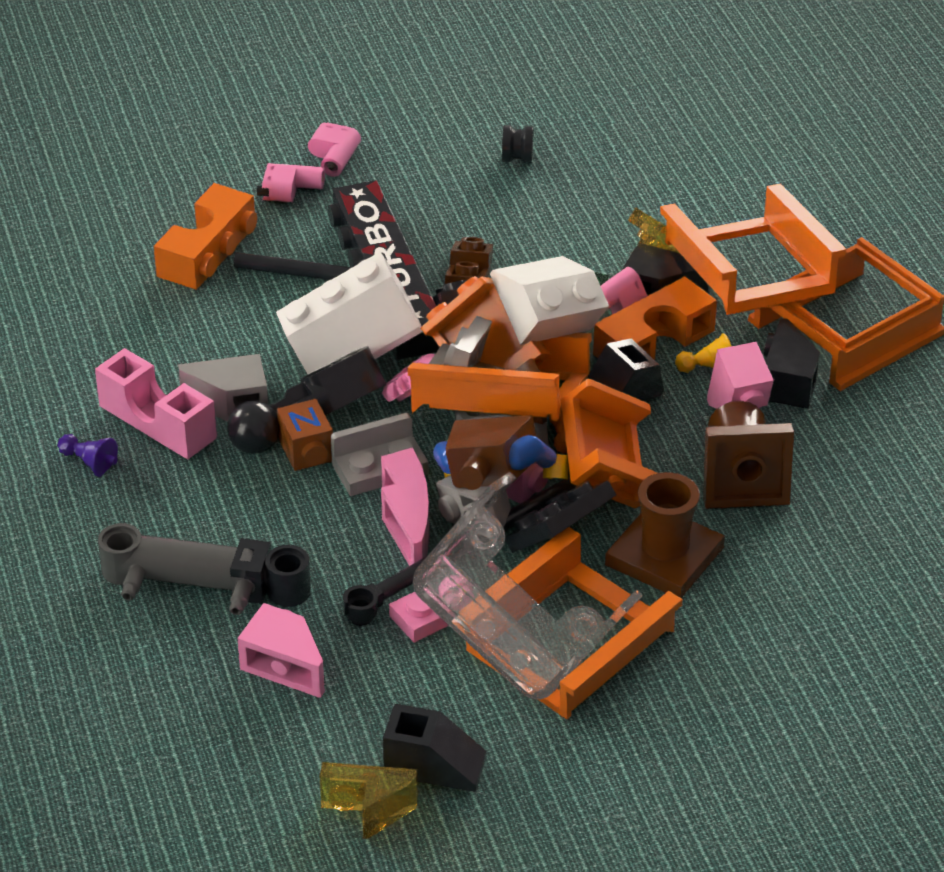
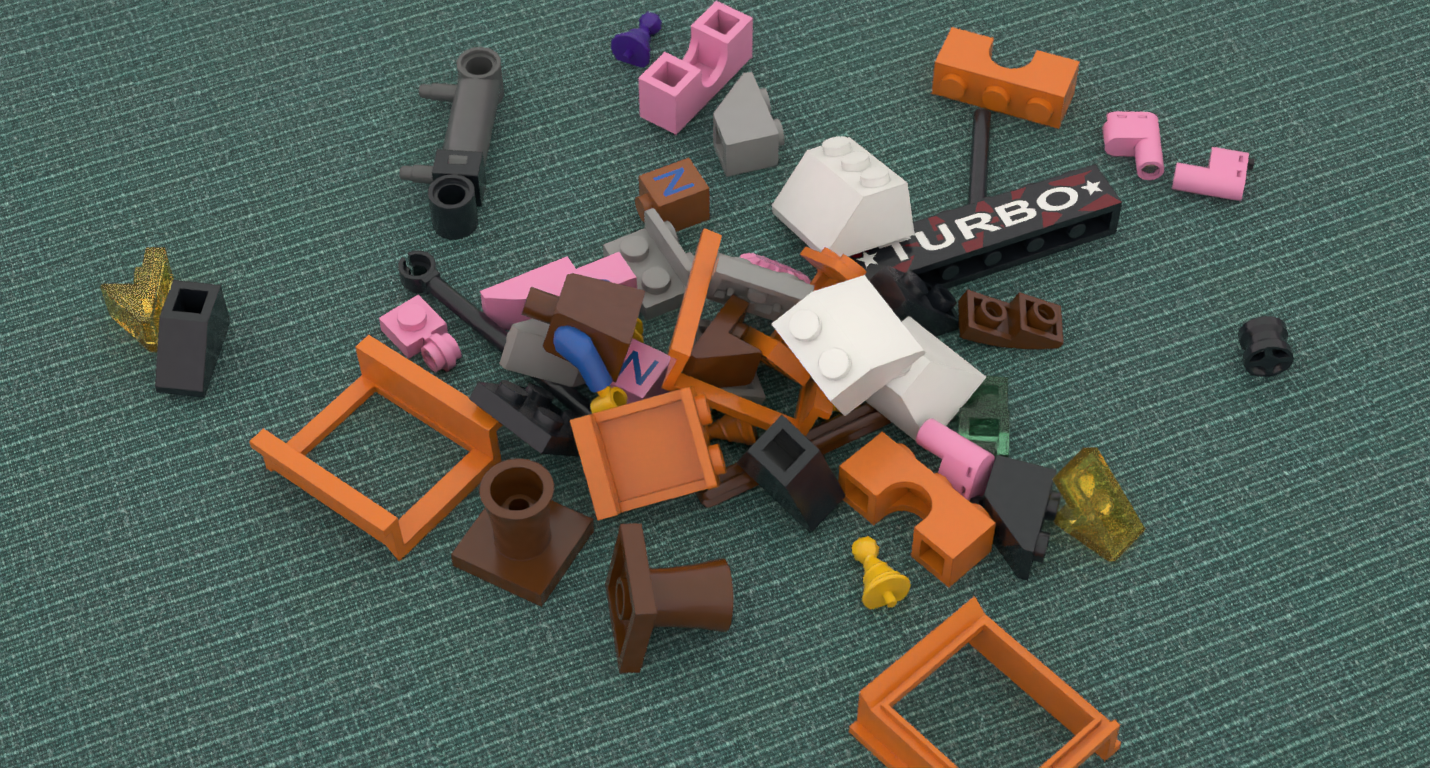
camera: 85 degrees right, 10 degrees up
(255, 425) = (739, 200): black beam -> none
(282, 650) = (345, 216): bright pink slope -> none
(497, 614) = (363, 363): clear windscreen -> none
(740, 376) = (779, 584): bright pink slope -> none
(789, 223) = (1003, 511): orange piece -> none
(792, 364) = (855, 652): black slope -> none

